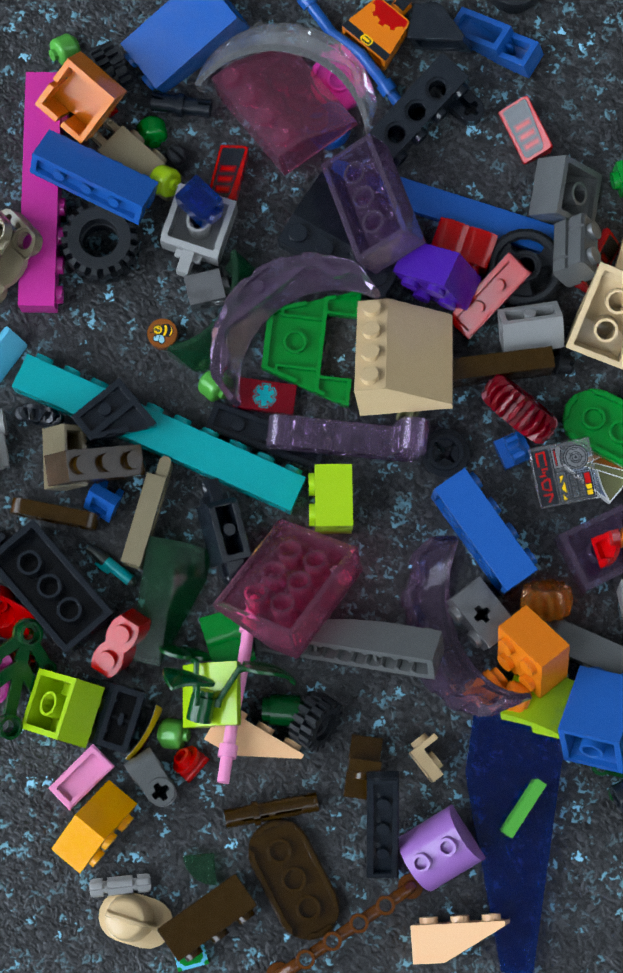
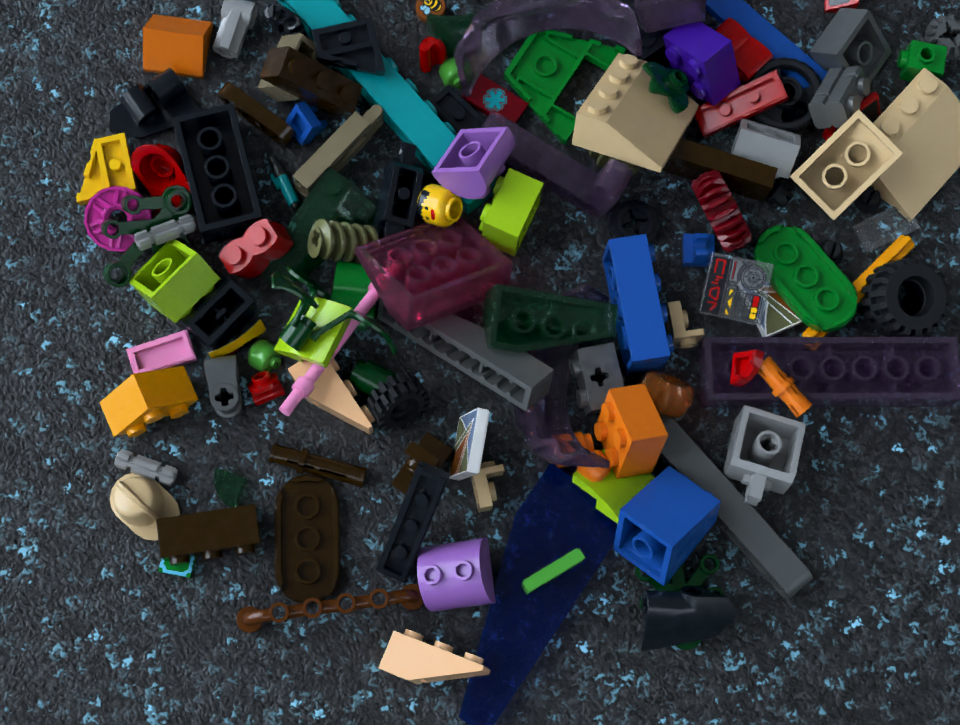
camera: 20 degrees right, 5 degrees down
(32, 668) = (165, 232): none -> light grey axle
(184, 377) = (431, 52): none -> red plate
(192, 599) = (338, 239): none -> olive piece
(265, 523) = (438, 206): none -> yellow head
(279, 471) = (474, 161): none -> medium lavender brick
(397, 730) = (469, 444): none -> tile
(402, 594) = (537, 320): none -> clear green wedge
(418, 315) = (668, 83): none -> dark green plate
(526, 529) = (677, 325): none -> tan bracket

